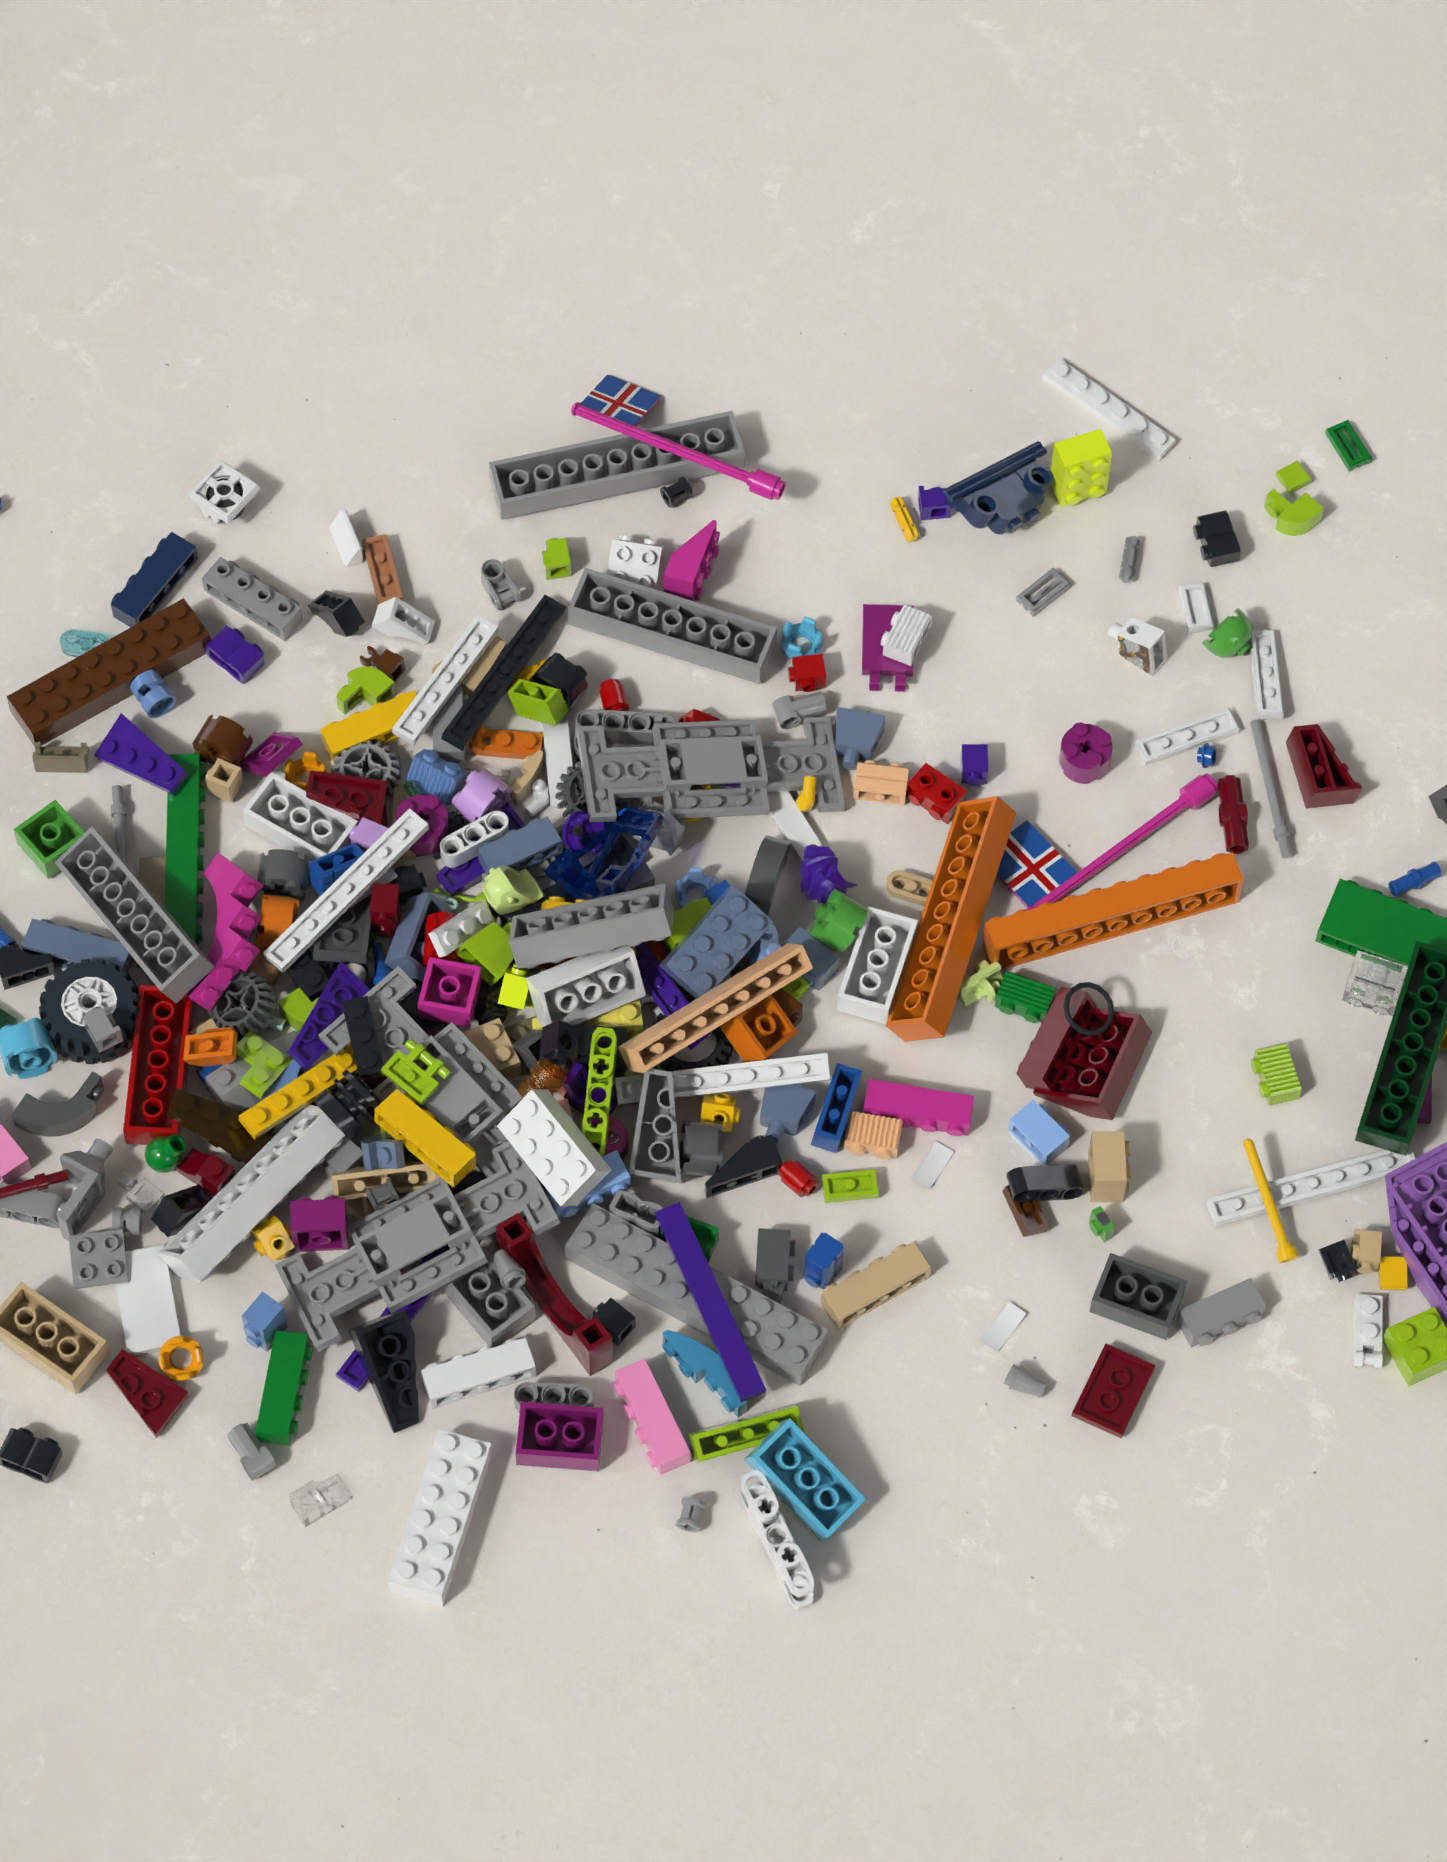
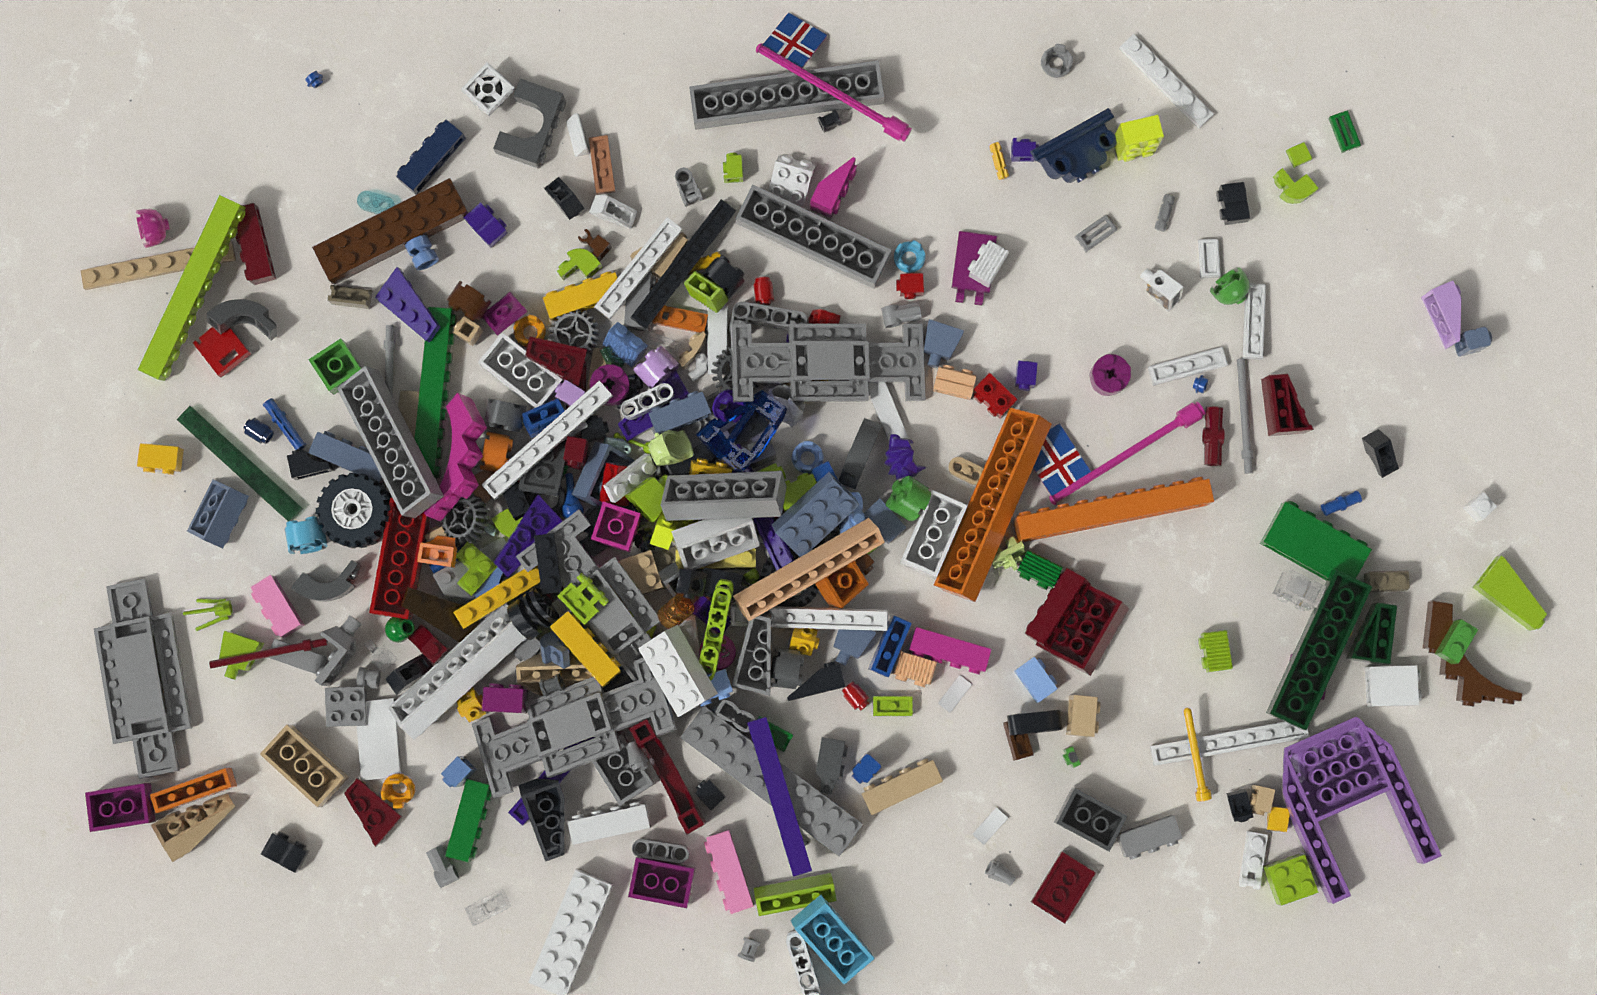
camera: 10 degrees right, 20 degrees up
(102, 1028) = (357, 535): light grey brick -> none
(253, 598) = (502, 179): light grey brick -> none
(286, 560) = (532, 149): none -> dark grey arch
(700, 1362) = (765, 833): dark azure slope -> none
(807, 796) = (898, 390): yellow arm -> none
(966, 387) = (1057, 51): none -> light grey piece
(1108, 1000) = (1099, 597): black piece -> none

